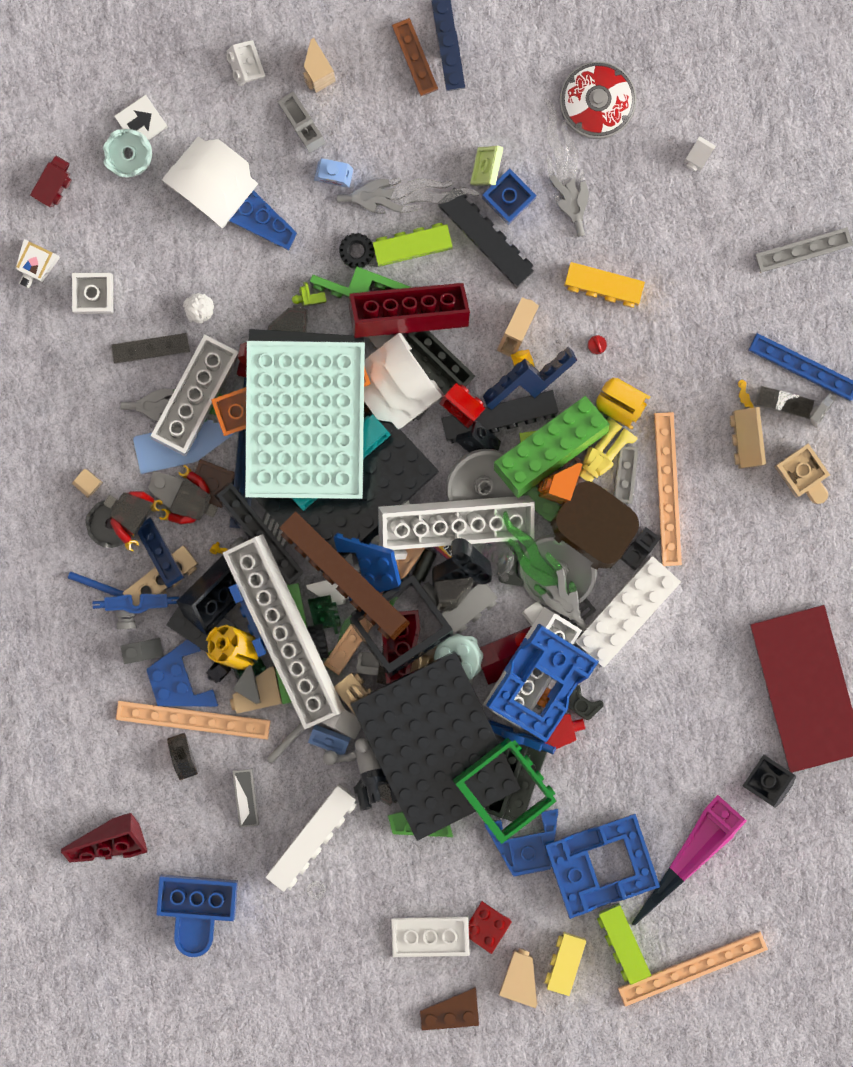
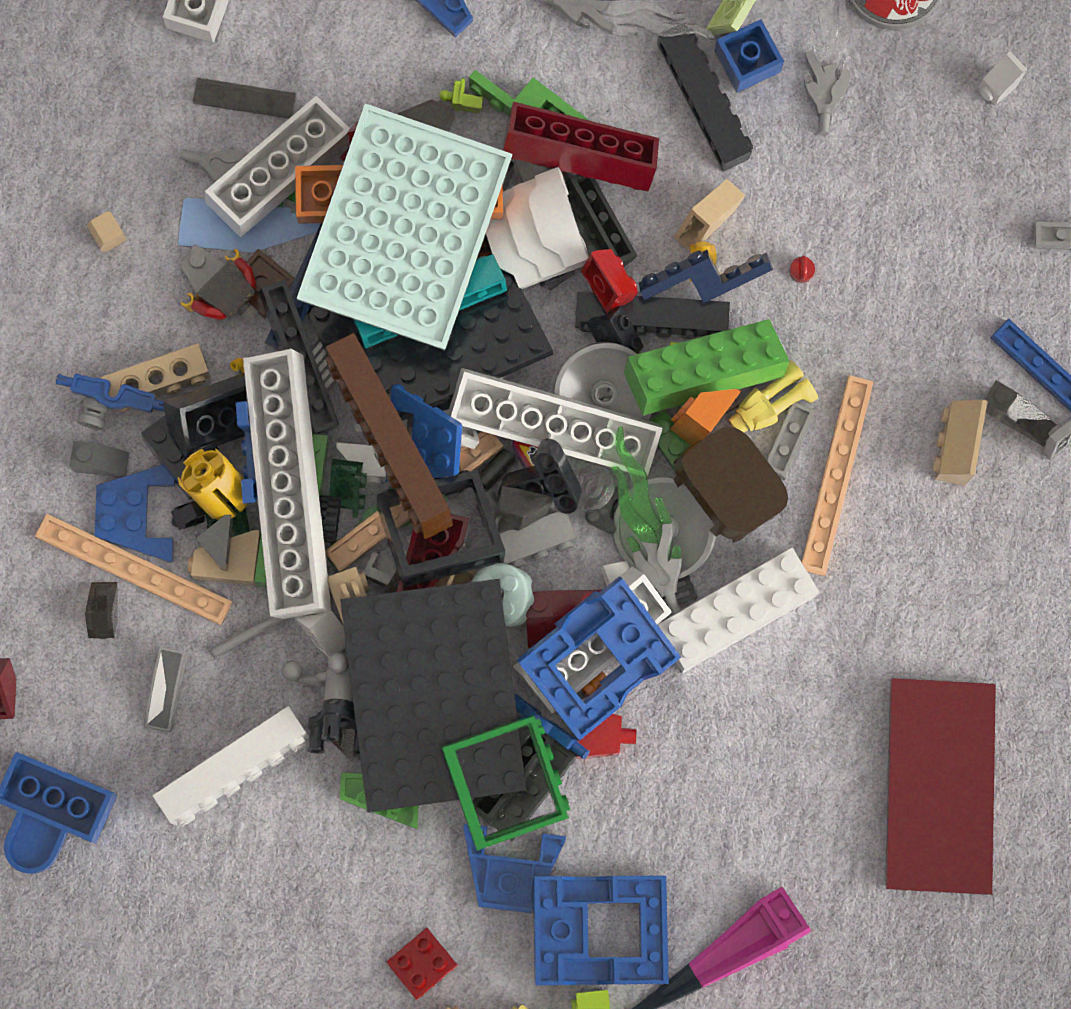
camera: 15 degrees right, 10 degrees down
(95, 584) = (67, 357): blue bar -> none
(97, 528) = (110, 274): dark grey plate -> none
(130, 513) = (144, 281): clear smoke torso -> none
(159, 553) = (165, 341): dark blue plate -> none
(198, 308) = (320, 67): white piece -> none
(329, 739) = (299, 649): medium blue plate -> none
(353, 239) = (542, 48): black tyre -> none
(412, 245) = (610, 77): lime brick -> none
(430, 936) = (343, 951): white tile -> none
(582, 706) = (640, 713): pearl dark grey piece -> none
(604, 284) = (834, 198): yellow brick -> none
(621, 401) = (822, 336): yellow cylinder -> none
(640, 548) = (778, 537): black slope -> none
(744, 397) = (968, 390): yellow piece -> none
(770, 781) = (856, 891): black slope -> none
(804, 473) = (1017, 508): tan brick -> none

